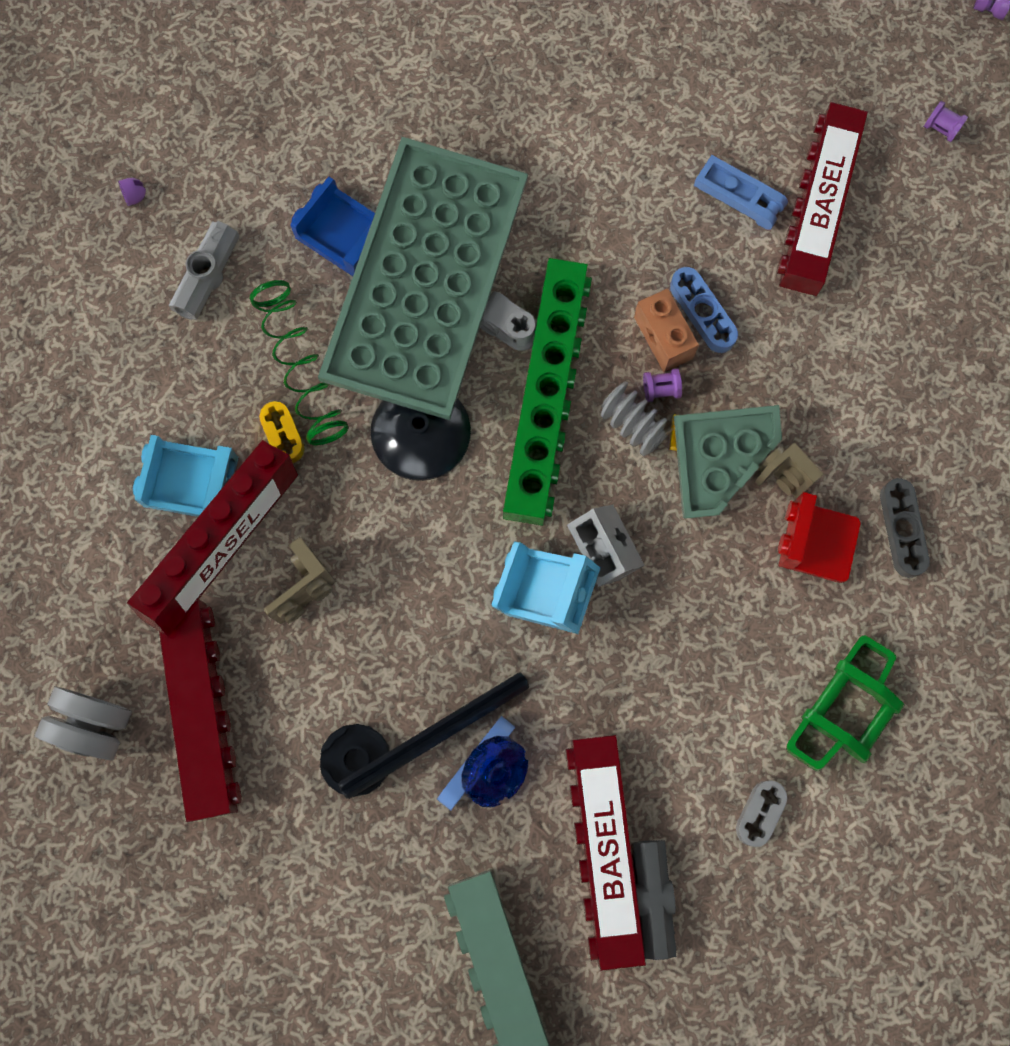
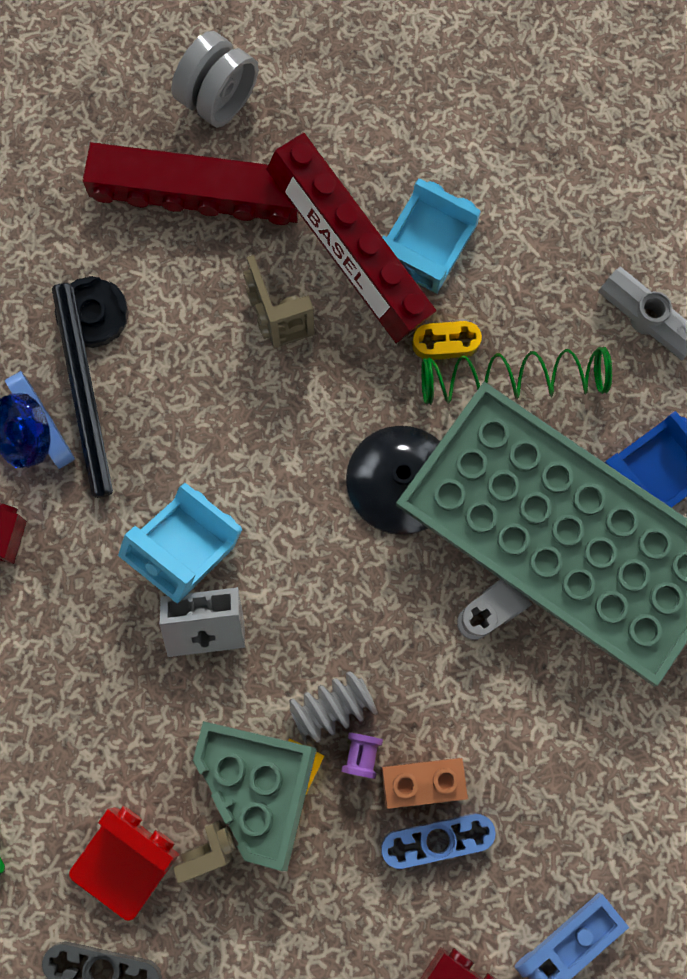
camera: 105 degrees right, 0 degrees up
(560, 279) = (525, 682): green brick -> none

